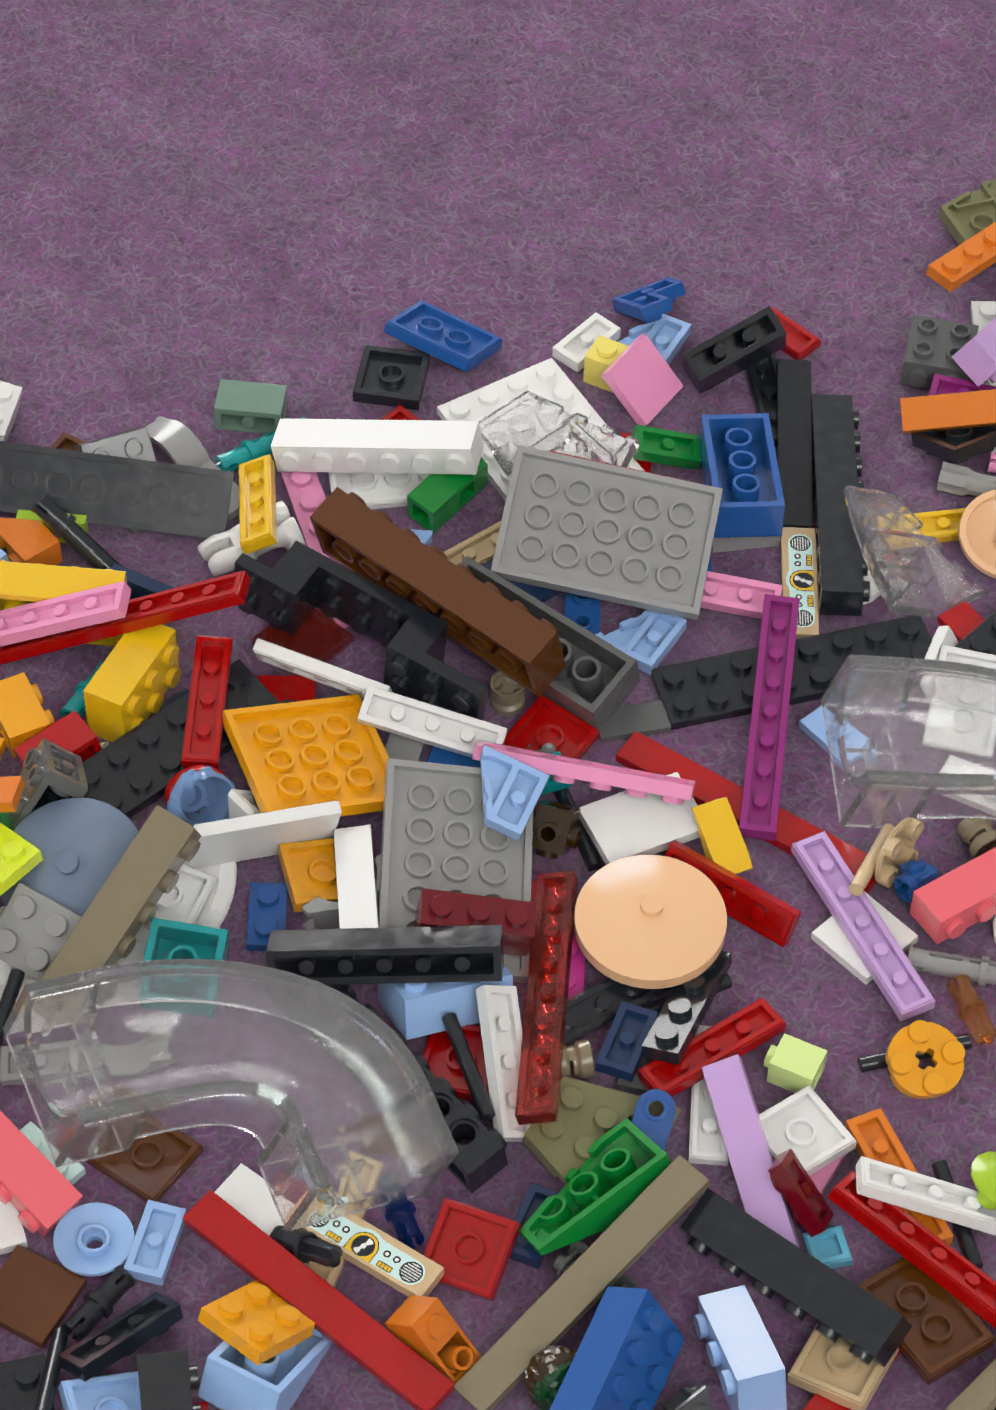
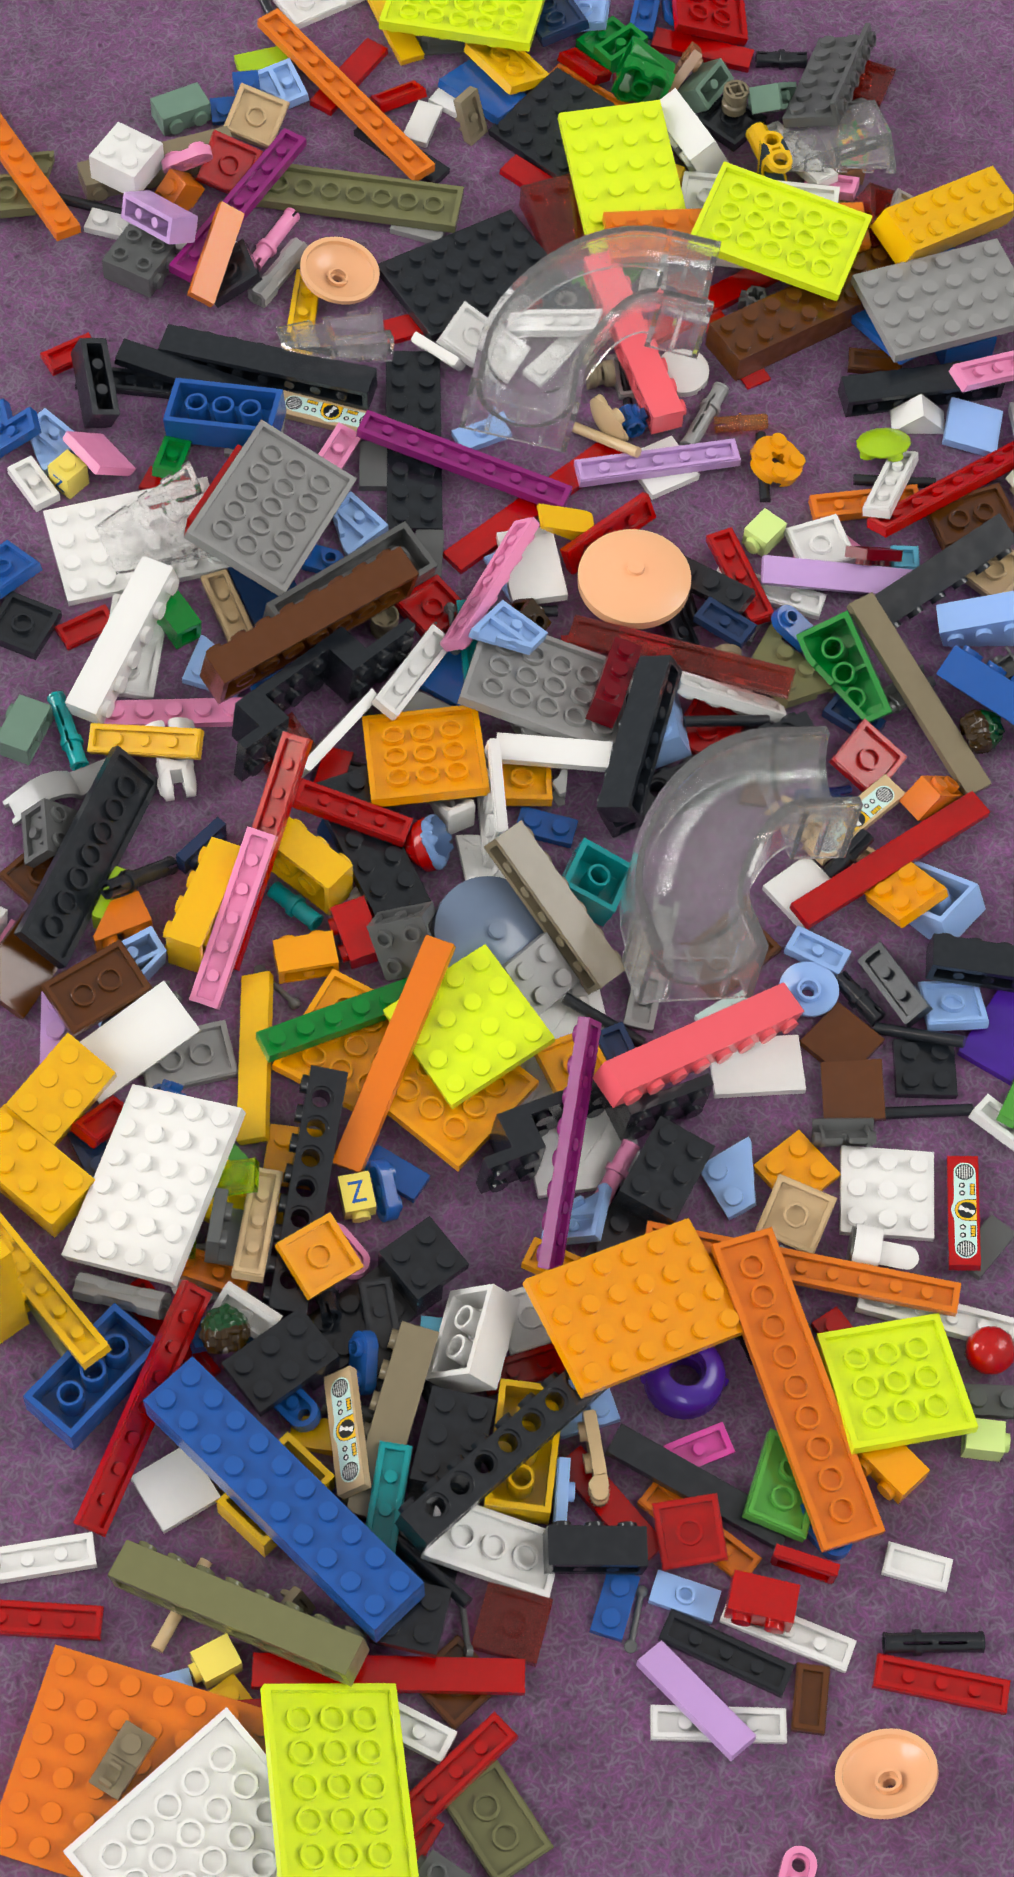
camera: 80 degrees left, 10 degrees up
(732, 637) = (372, 467): none -> dark grey tile

